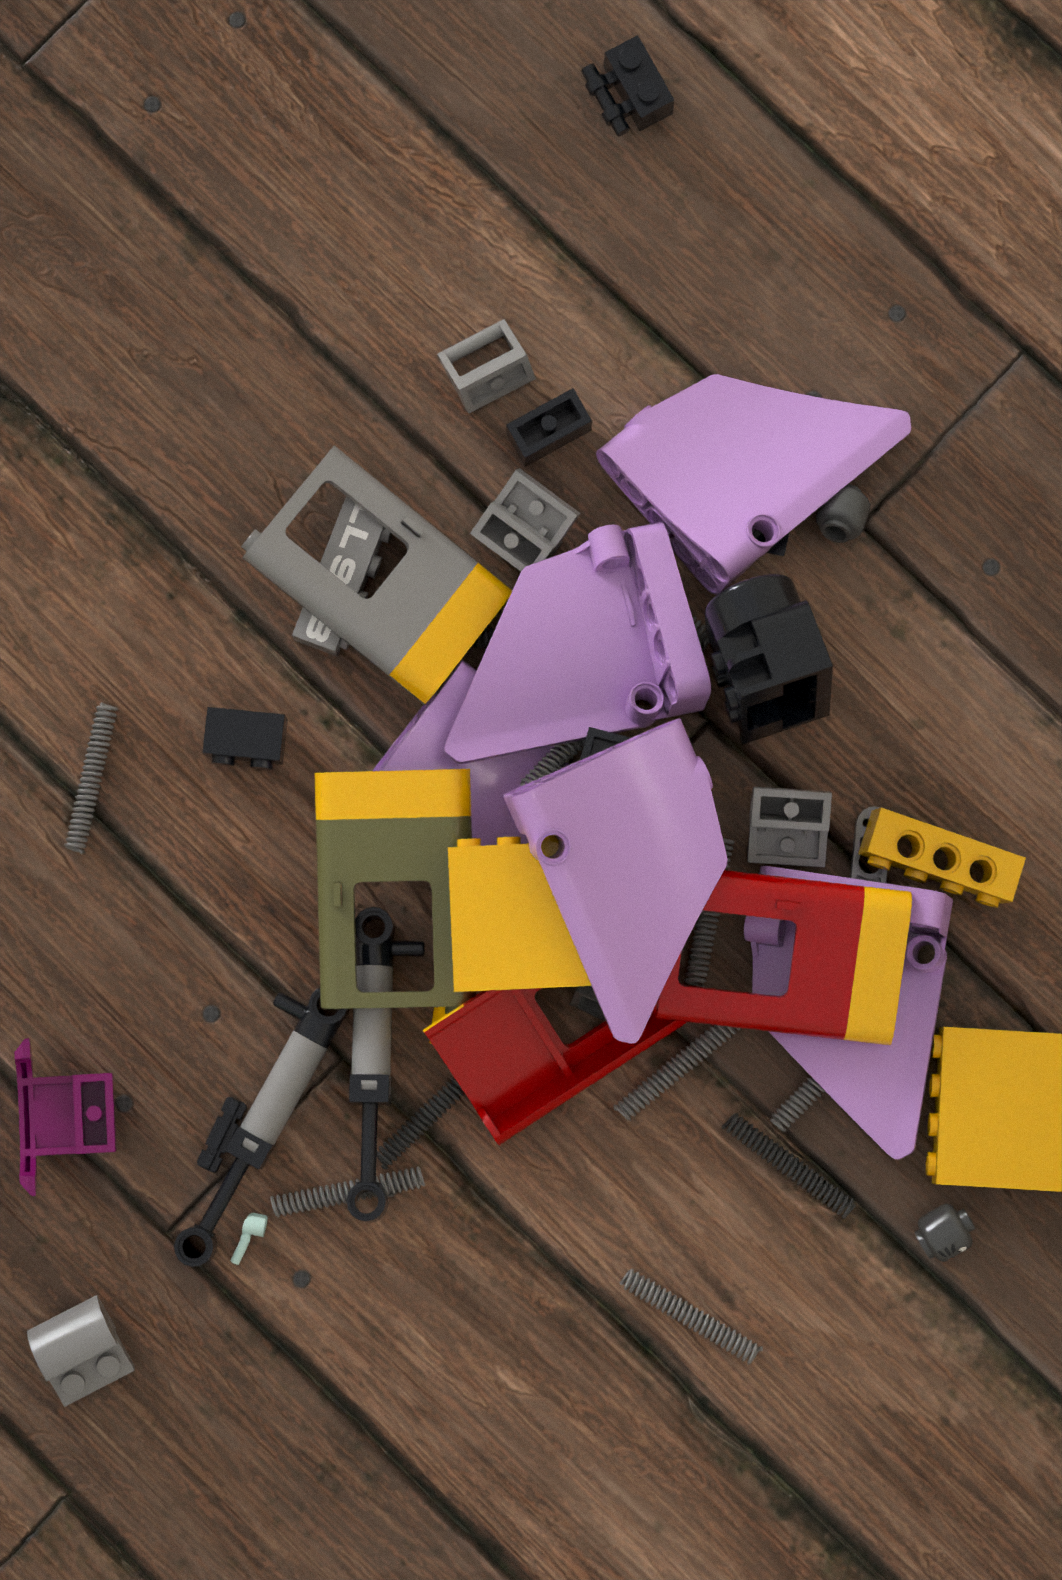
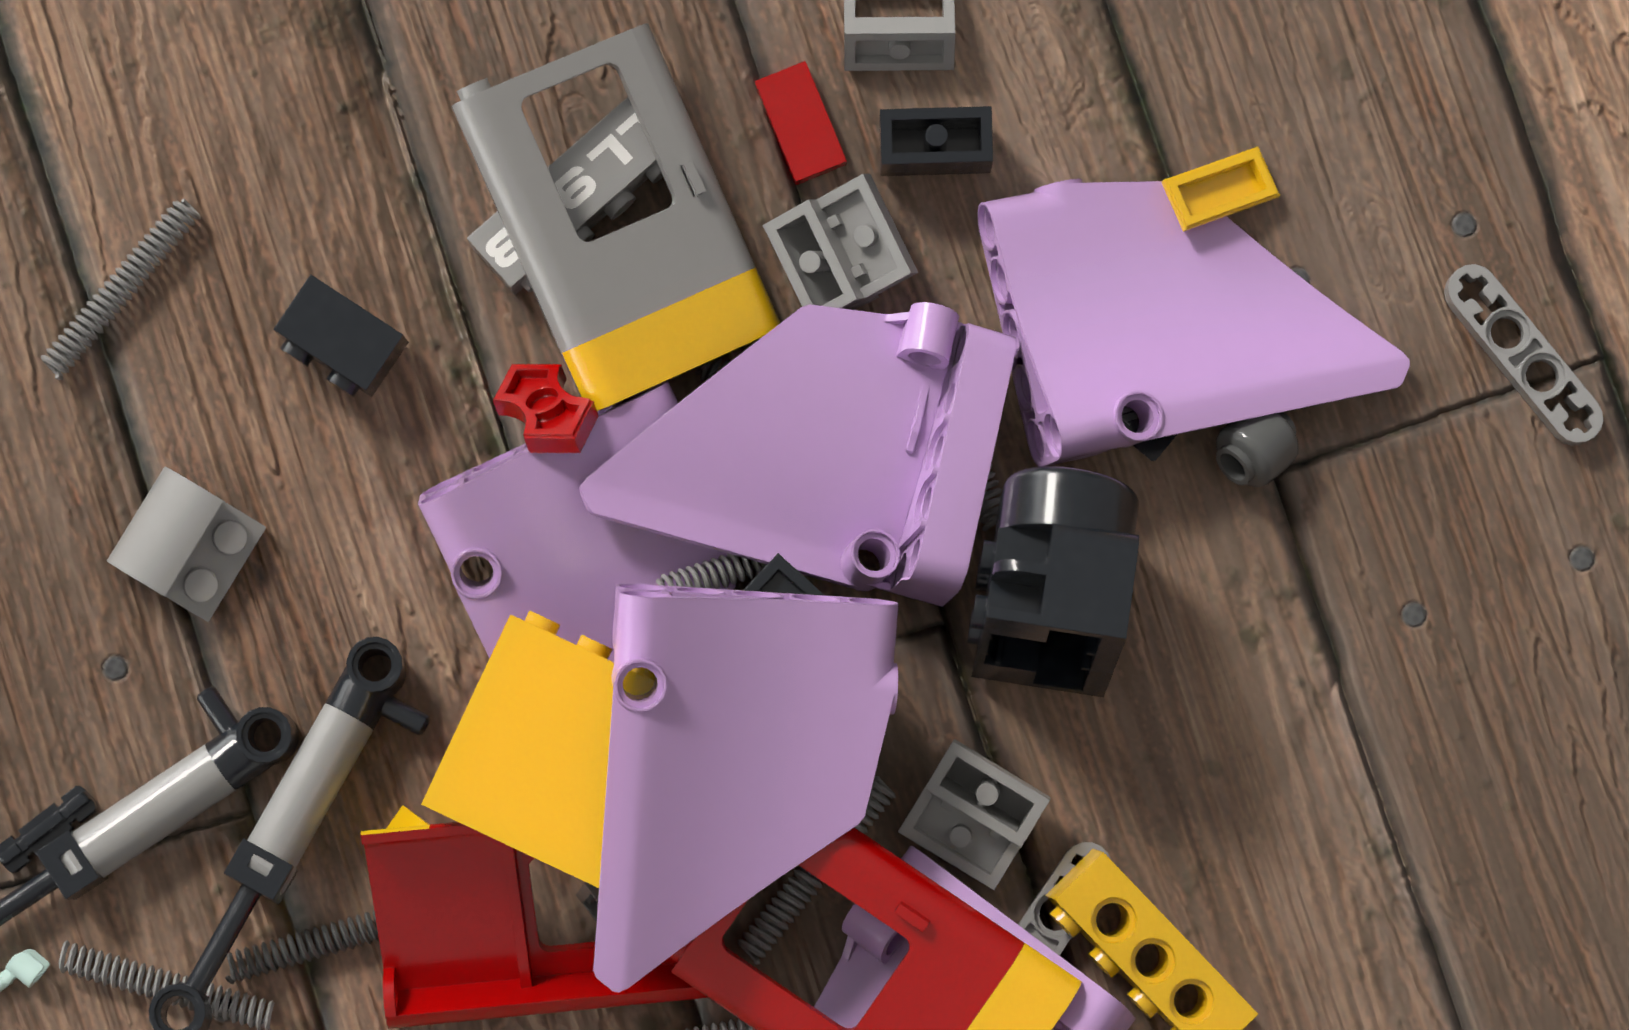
camera: 25 degrees right, 0 degrees up
(216, 913) = (186, 544): none -> light grey brick
(385, 831) = (447, 551): olive piece -> none
(402, 716) = (552, 416): none -> red tile
(458, 459) = (800, 123): none -> red tile
(738, 367) = (1220, 189): none -> yellow tile
(977, 368) = (1530, 349): none -> light grey beam

